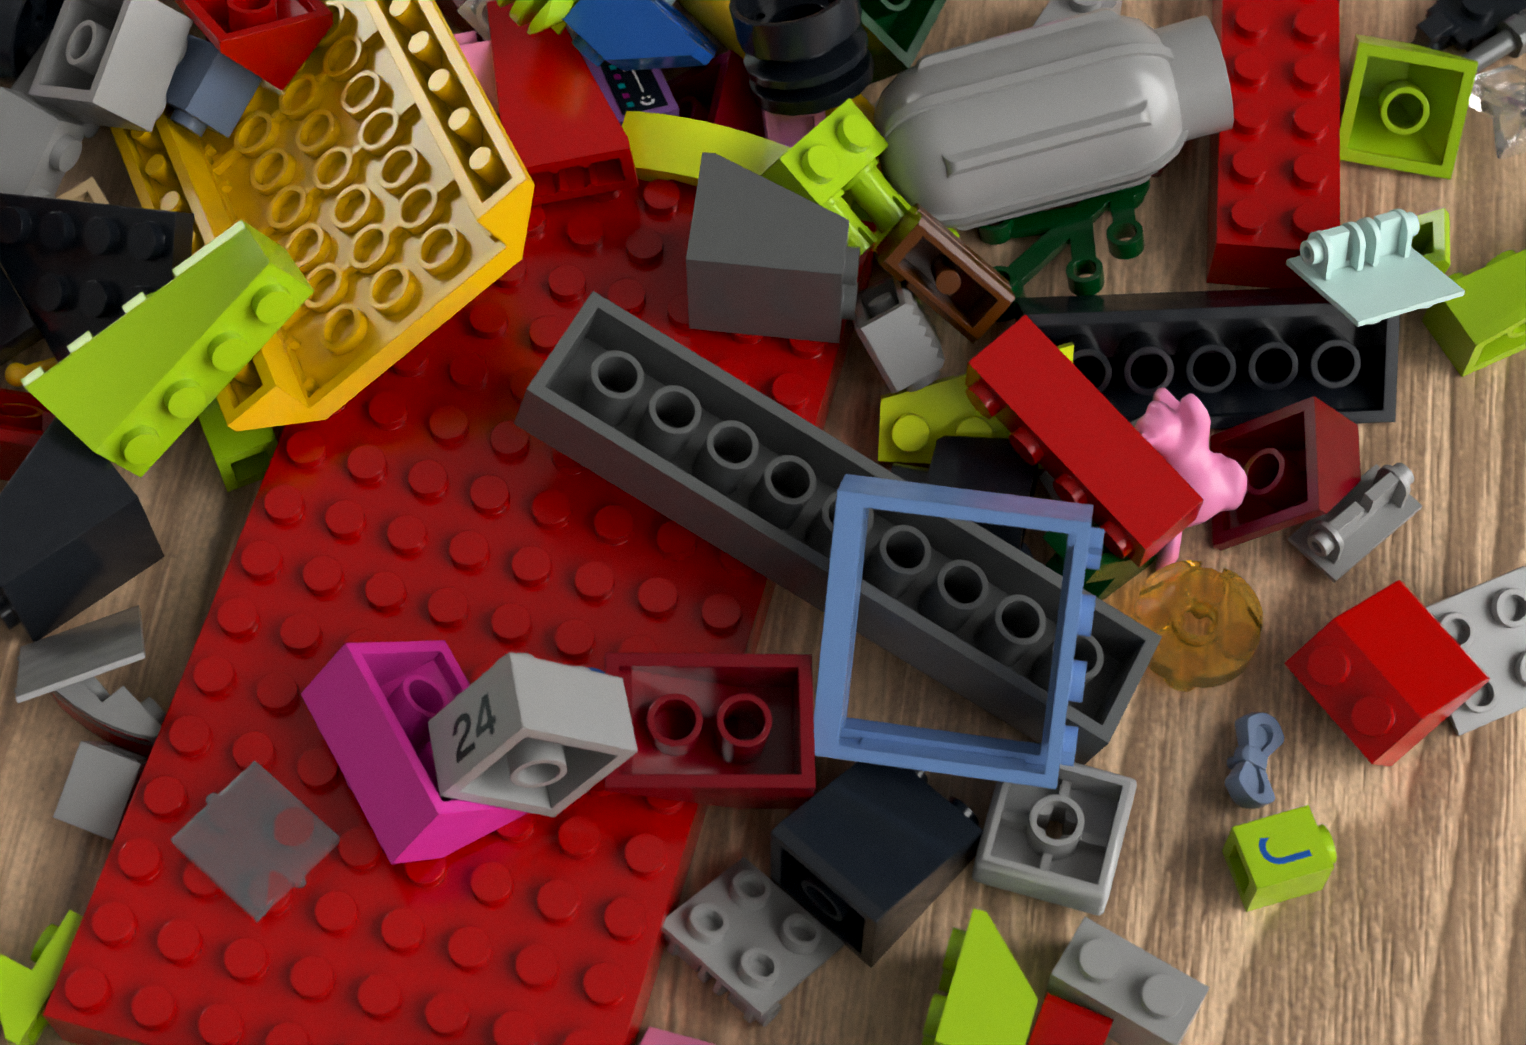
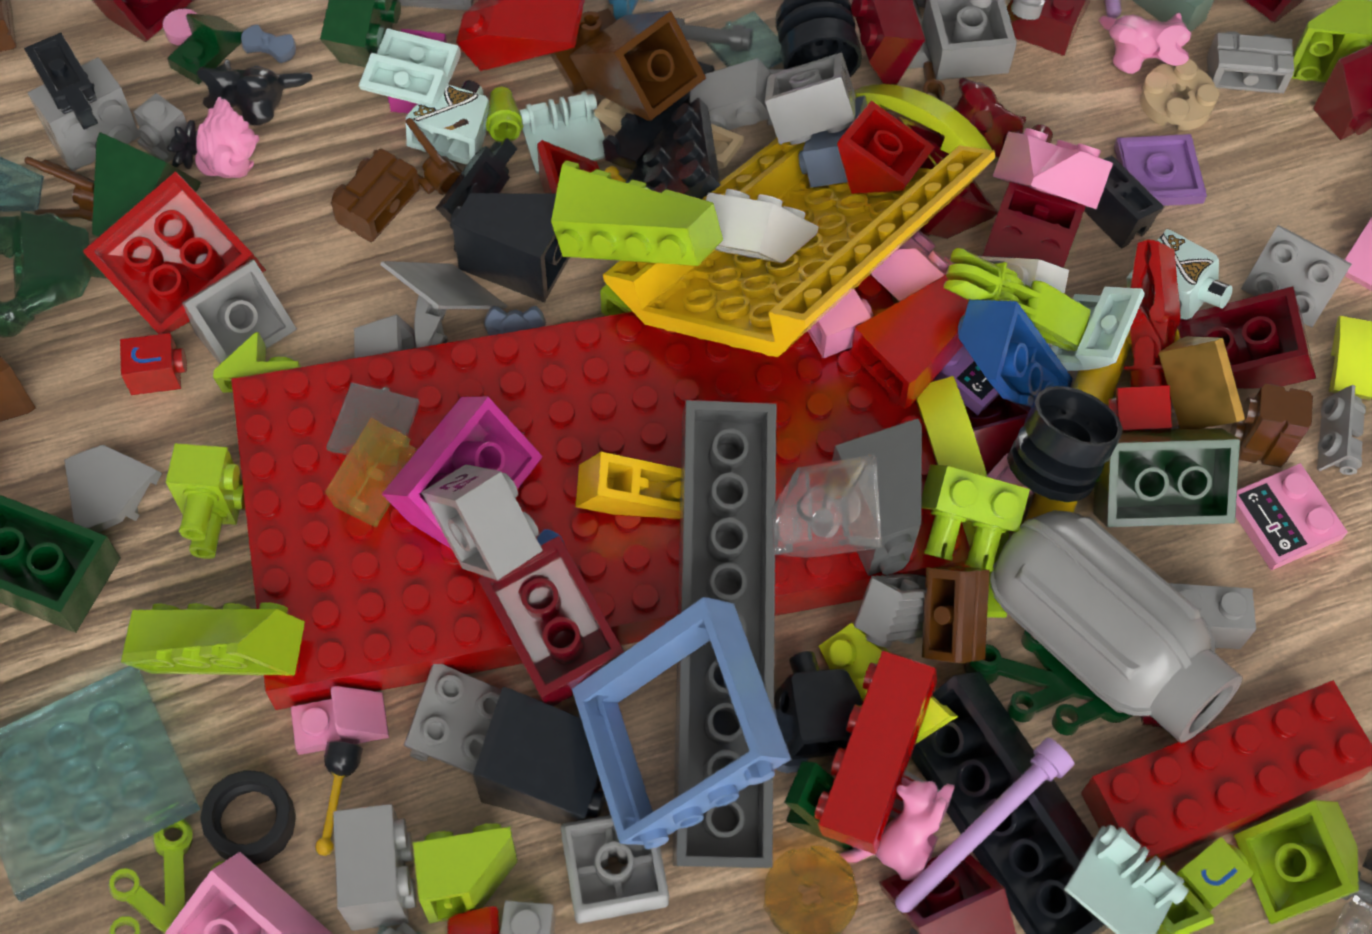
camera: 60 degrees right, 0 degrees up
(182, 603) = (500, 322): none -> sand blue piece
(291, 201) = (760, 226): none -> white slope
(346, 864) = (368, 471): none -> clear yellow hinge
(568, 546) = (628, 487): none -> yellow slope
(766, 309) = (829, 509): none -> clear slope
(1191, 267) = (1048, 763): none -> lavender piece
(1376, 185) = (1216, 873): none -> lime brick

